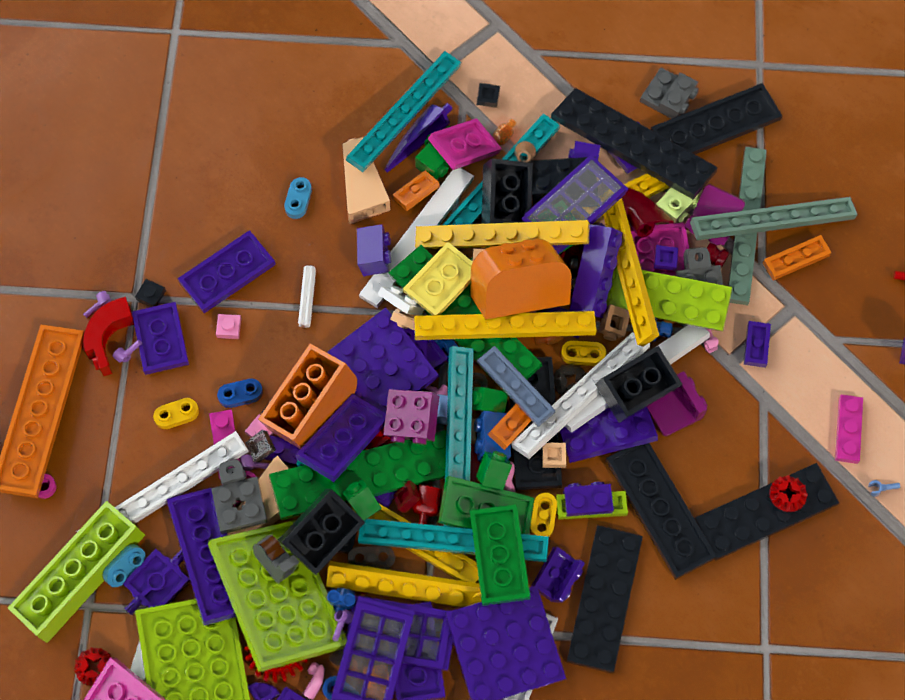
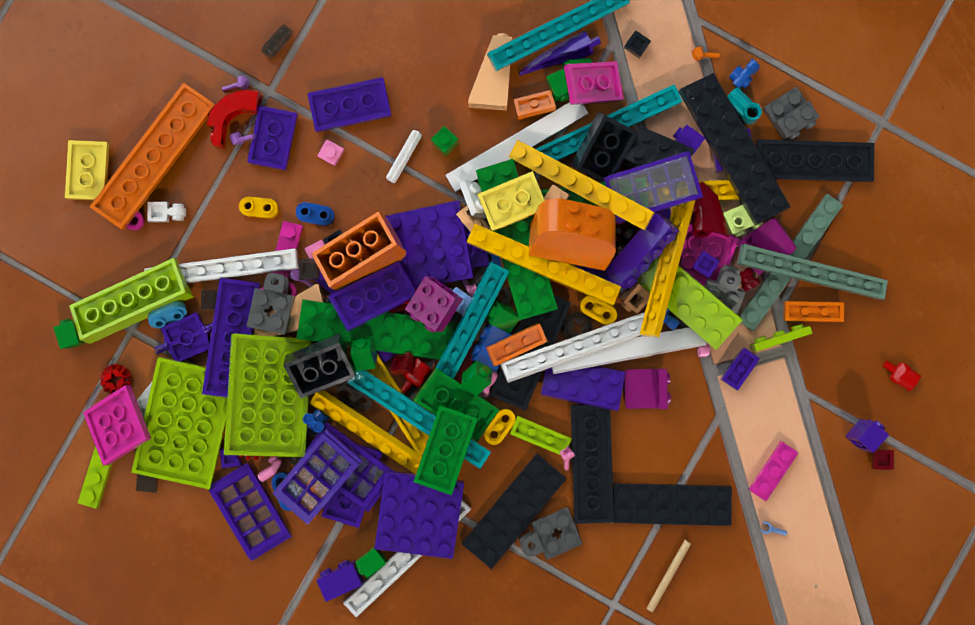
camera: 30 degrees right, 20 degrees up
(20, 639) = (67, 334): none -> green brick
(70, 464) = (160, 212): none -> white plate
(123, 244) = (277, 41): none -> clear smoke beam
(150, 293) = (281, 94): black plate -> none
(164, 531) = (208, 299): none -> clear smoke tile
(275, 558) = (275, 370): dark grey leg -> none
(299, 197) = (437, 64): dark azure plate -> none
(342, 261) = (444, 141): none -> green brick
(343, 617) = (309, 435): medium lavender hand -> none
(373, 250) = (473, 143): brick -> none
(504, 132) = (633, 85): clear orange cylinder -> none
(516, 386) = (526, 319): sand blue tile -> none
(525, 147) = (638, 116): medium nougat cone -> none
(551, 79) = (698, 54): none -> orange hand
(554, 455) = (530, 386): light nougat plate -> none
(558, 575) = (487, 479): dark purple bracket -> none
(588, 499) = (539, 432): dark purple bracket -> none
(605, 80) = (742, 77): none -> blue plate
(621, 103) = (742, 103): none -> teal piece
(629, 509) = (566, 455): none -> bright pink hand
(638, 384) = (624, 365): black brick -> none
(651, 611) = (542, 535): none -> dark grey plate
(779, 295) = (780, 337): none -> lime plate
(780, 499) = (693, 493): red gear -> none
(805, 587) = (668, 576): none -> tan bar

